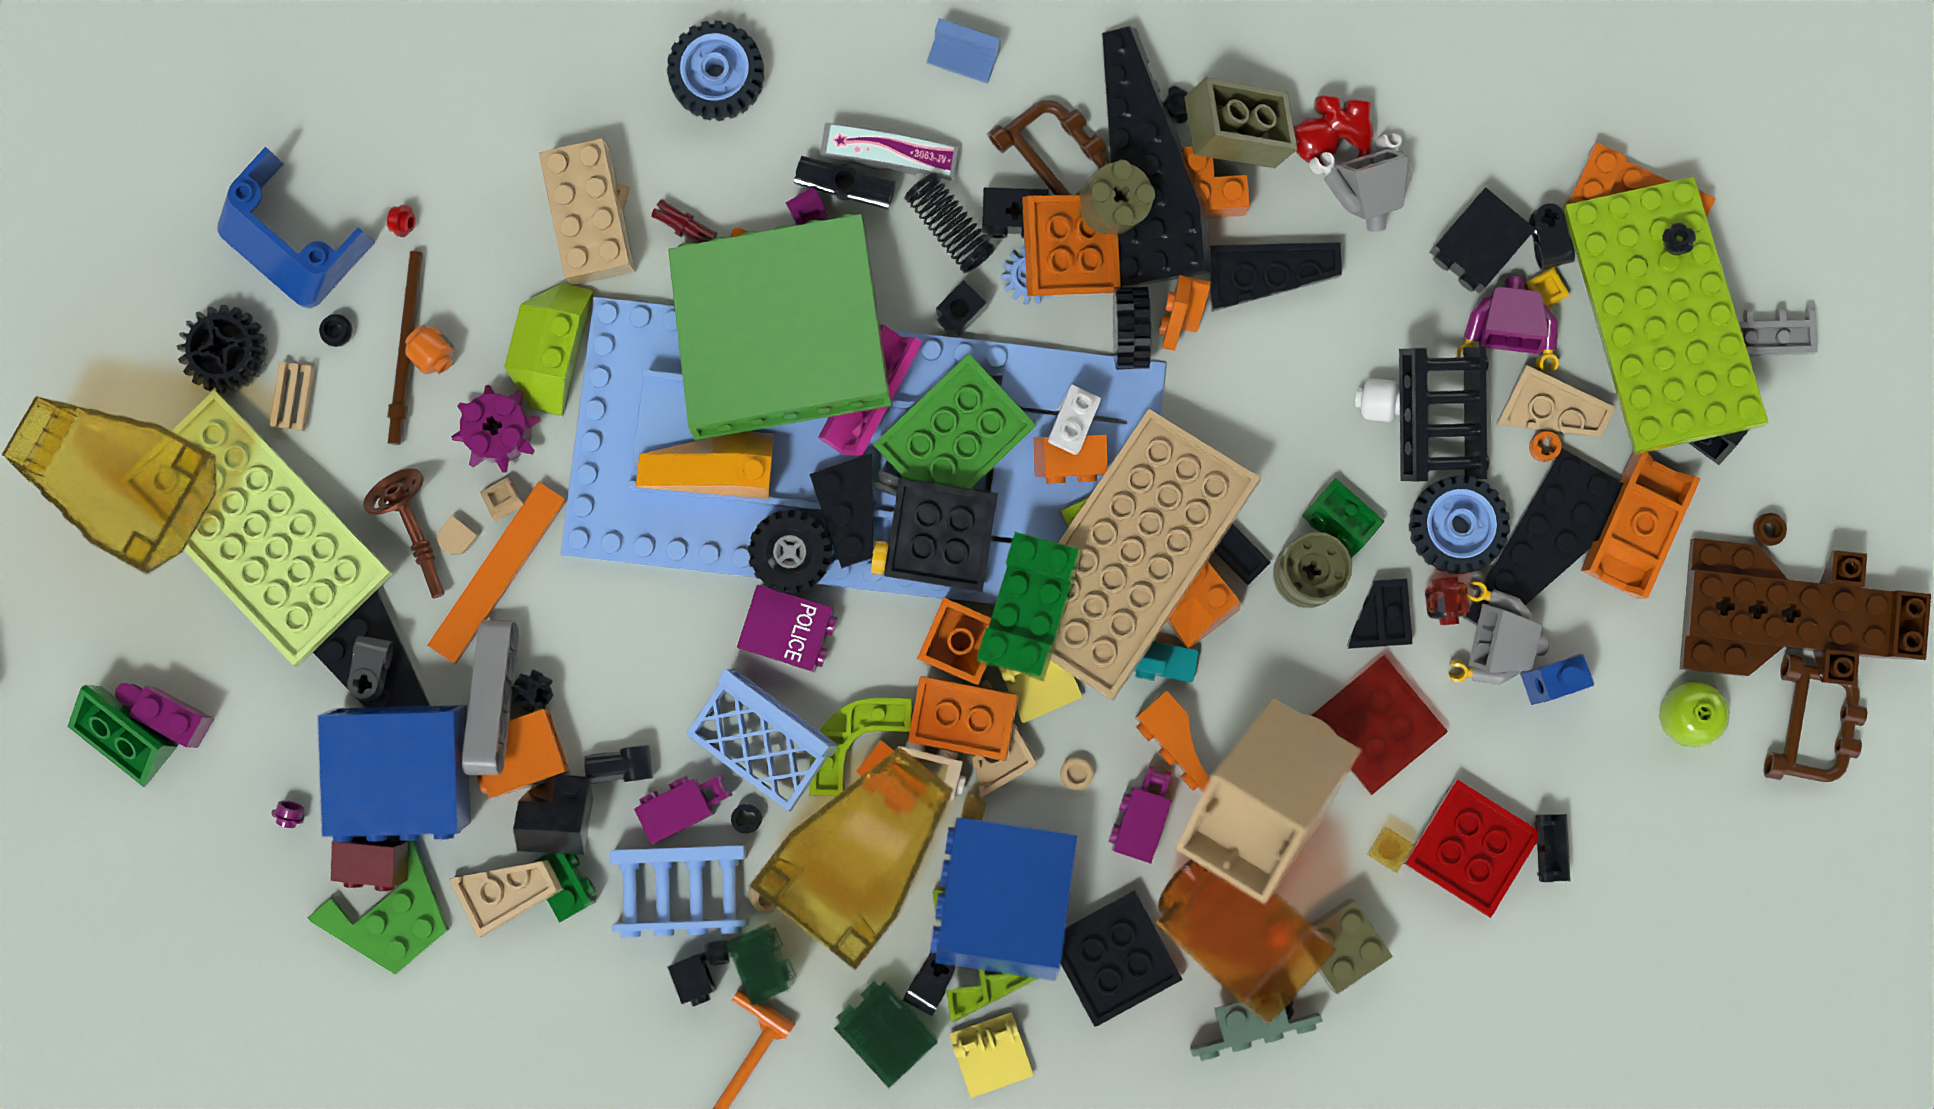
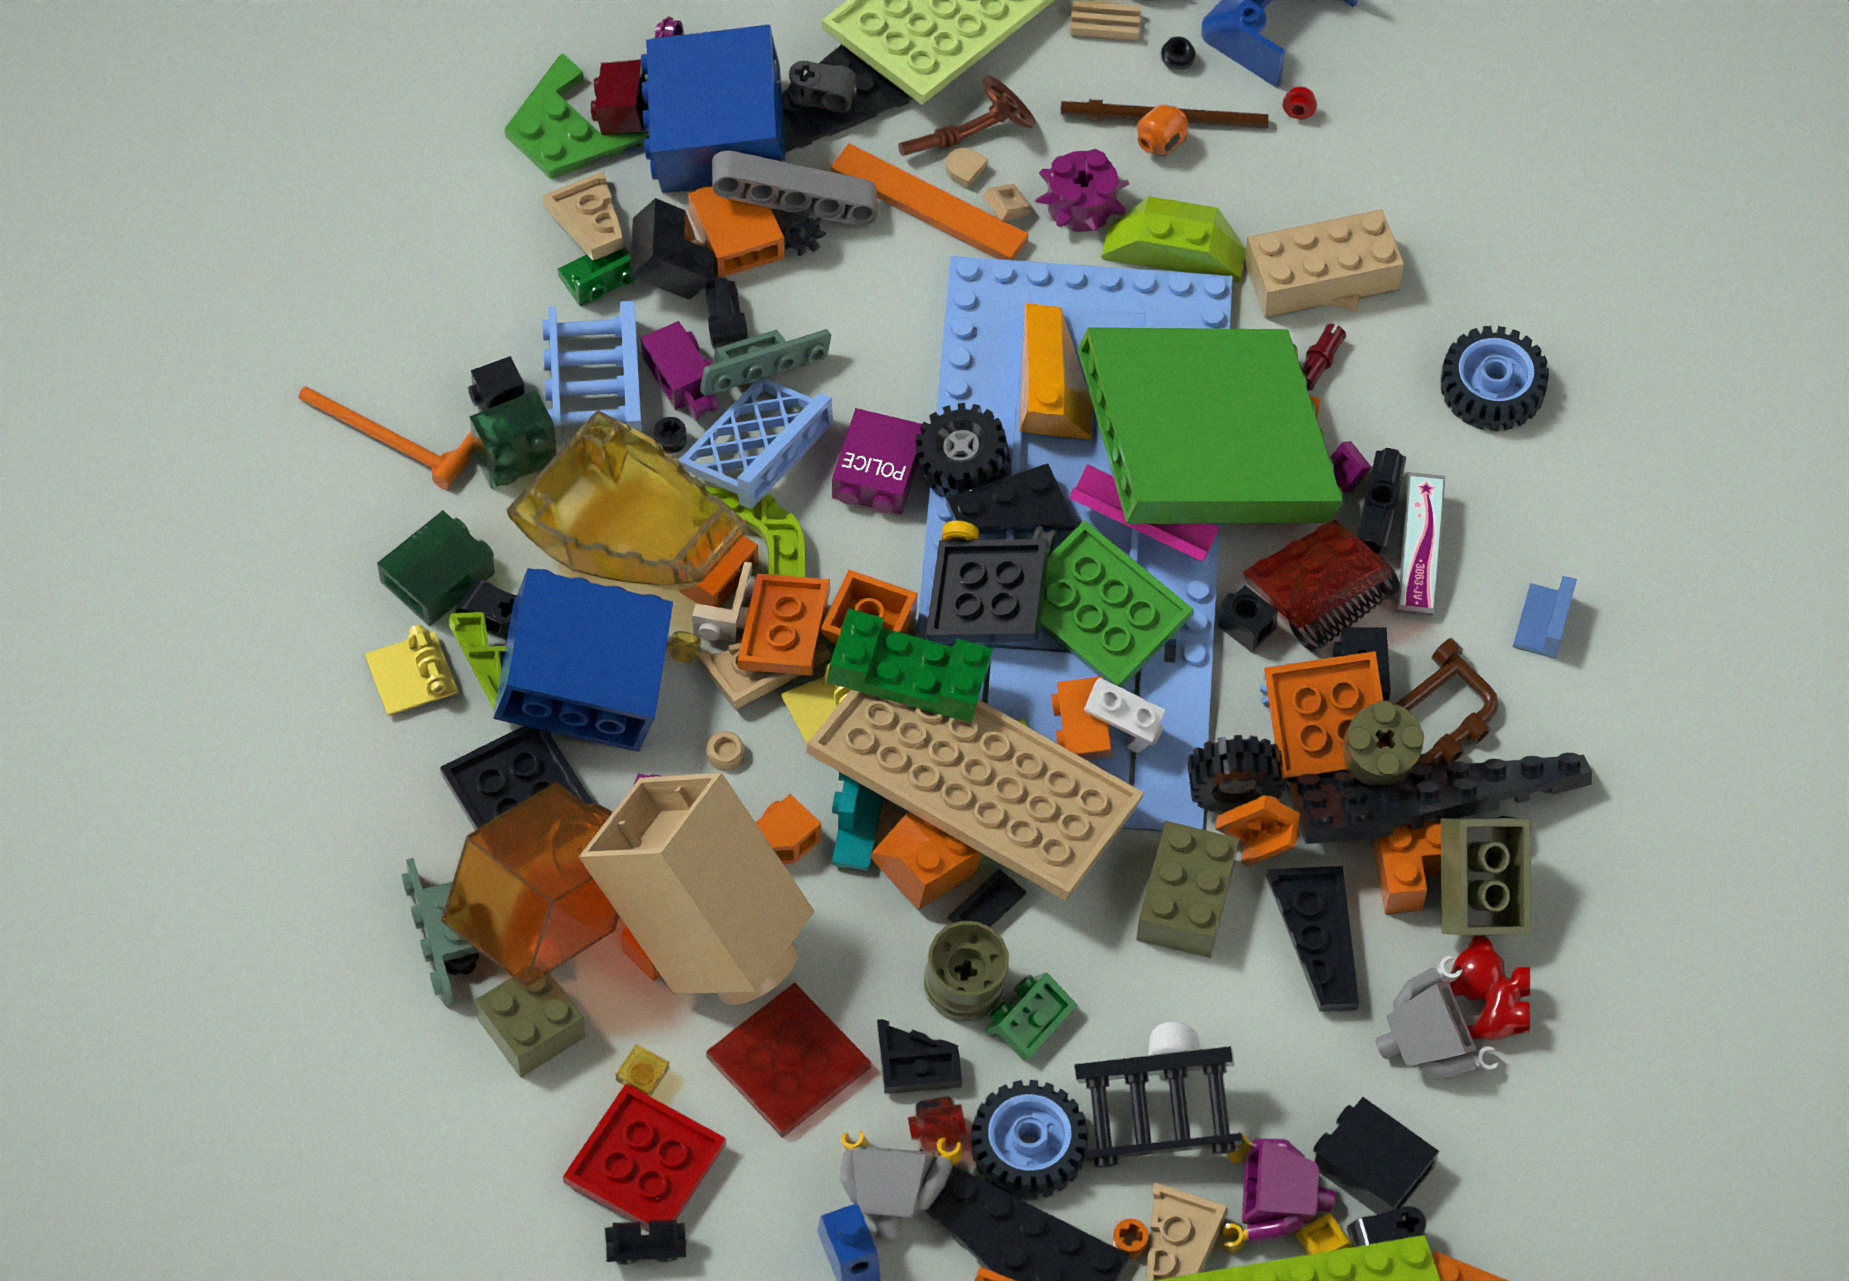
camera: 85 degrees right, 25 degrees down
(670, 736) = (760, 358): none -> sand green bracket
(927, 243) = (1317, 573): none -> clear red plate
(1230, 378) = (1187, 889): none -> olive brick

